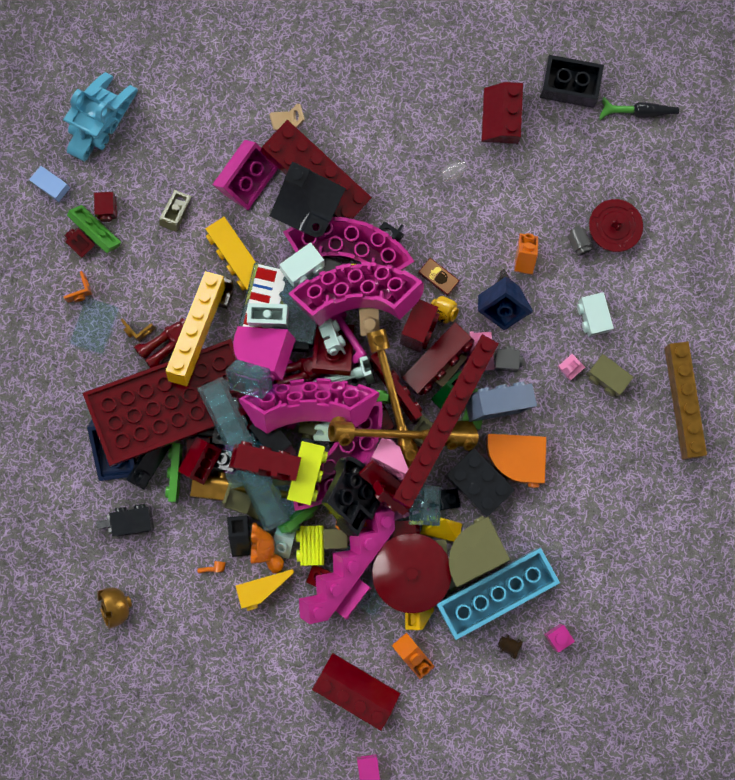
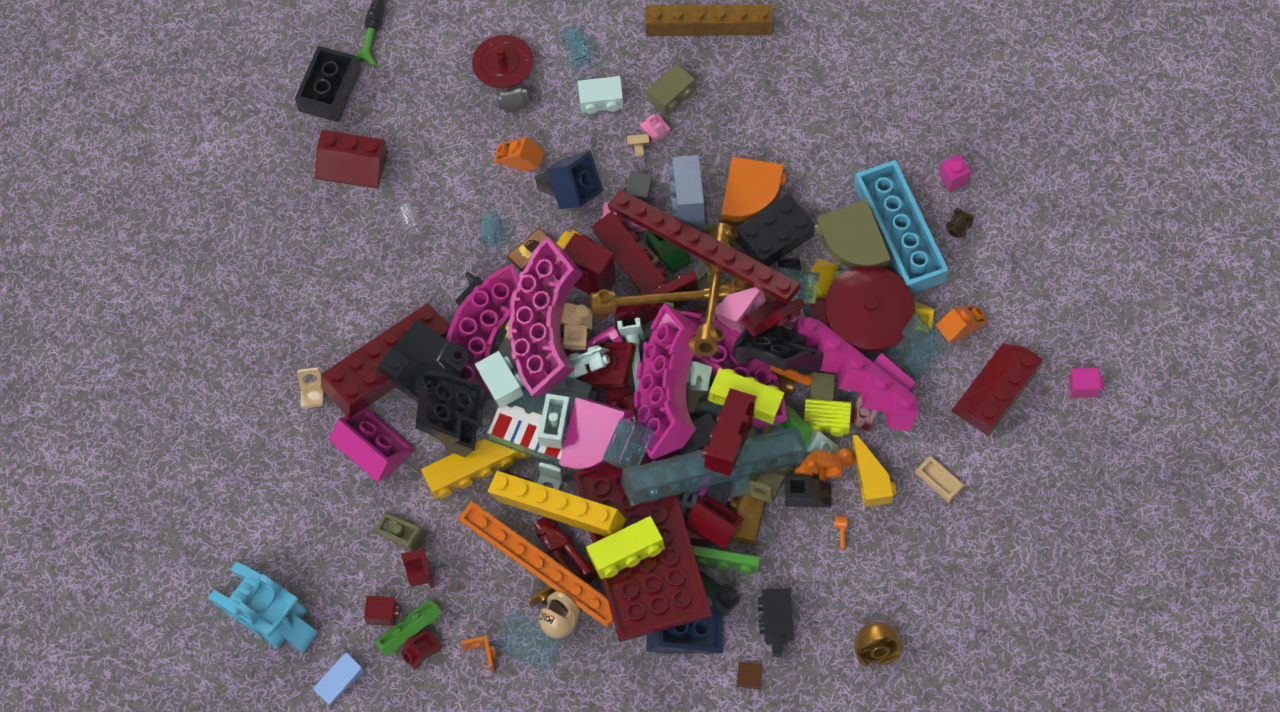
camera: 75 degrees left, 15 degrees down
(81, 504) = (749, 675): none -> reddish brown tile
(109, 345) = (556, 620): none -> tan helmet
(138, 229) = (417, 568): none -> dark red panel
(151, 318) = (537, 562): none -> orange tile
(158, 389) = (625, 548): none -> neon yellow brick
(235, 318) = (550, 474): none -> light aqua bracket
(267, 227) = (449, 410): none -> black slope
(267, 647) = (939, 479): none -> tan tile
(349, 322) = (575, 337): none -> tan tile
(385, 620) = (921, 346): none -> clear light blue tile
(451, 240) = (490, 230): none -> clear light blue brick
(552, 354) = (638, 142): none -> tan tile
(640, 288) = (574, 42): none -> clear light blue leg

